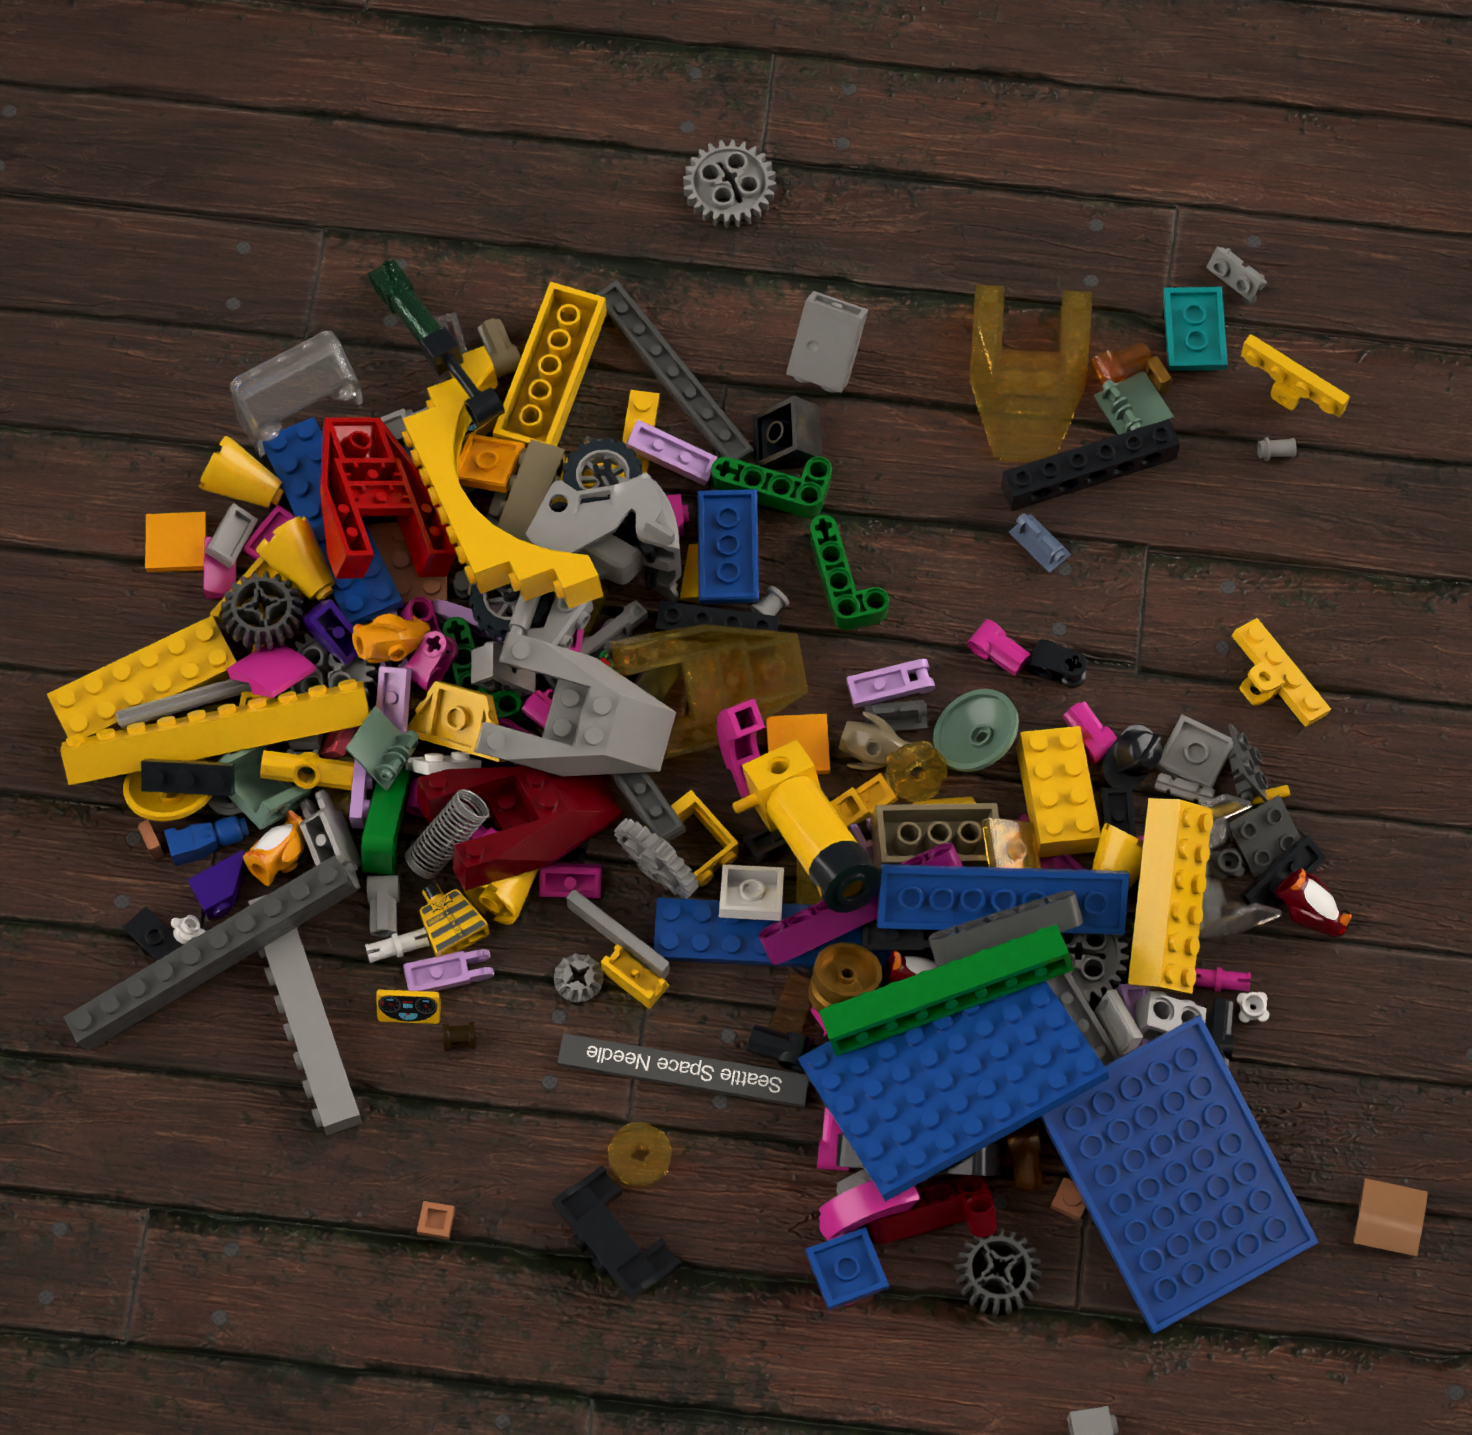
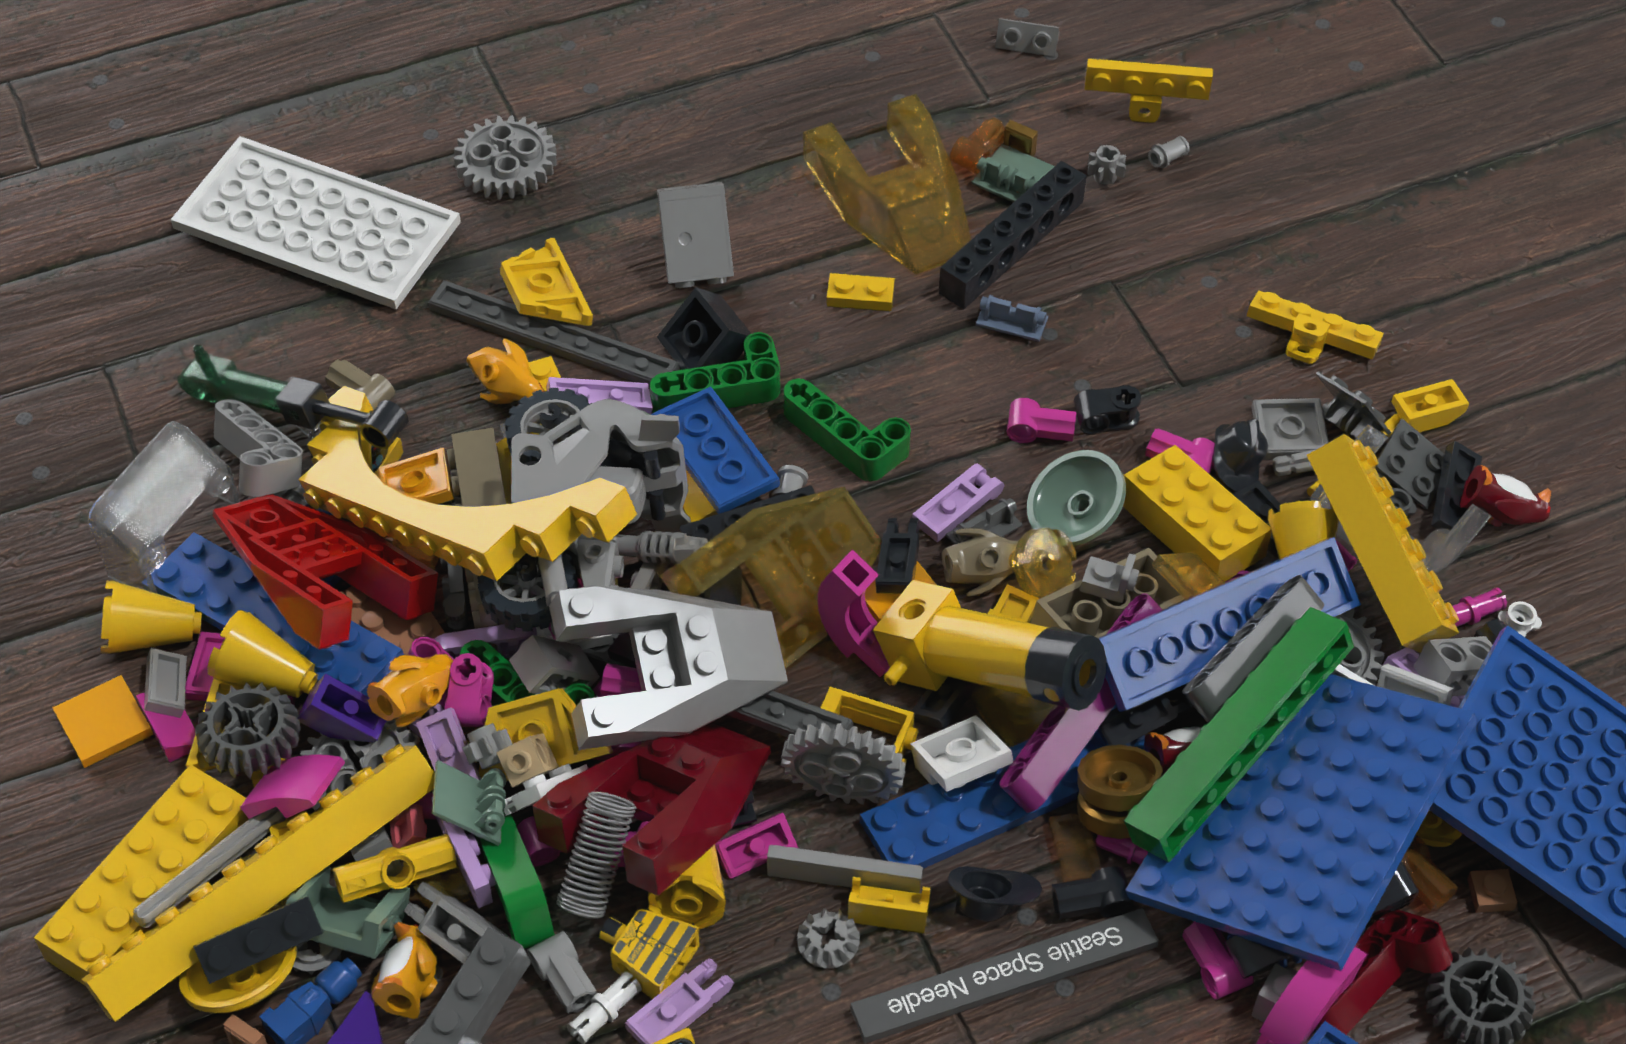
camera: 30 degrees left, 15 degrees down
(396, 387) = (266, 456): none -> light grey beam
(418, 711) = (485, 744): none -> light grey gear
(439, 737) = (527, 759): none -> tan brick
(549, 173) = (317, 222): none -> white plate
(552, 366) = (425, 369): yellow brick -> none
(610, 396) = (504, 373): none -> light orange animal
(632, 611) = (658, 546): none -> light grey hinge
(689, 326) = (545, 285): none -> yellow wing
(708, 1006) = (991, 893): none -> black piece
(810, 708) = (897, 557): none -> black hinge
(937, 455) = (860, 292): none -> yellow plate
(942, 815) = (1109, 579): none -> light grey bracket
(1195, 328) = (1024, 91): teal plate -> none
(1217, 428) = (1106, 164): none -> light grey gear
(1317, 791) = (1431, 405): none -> yellow slope

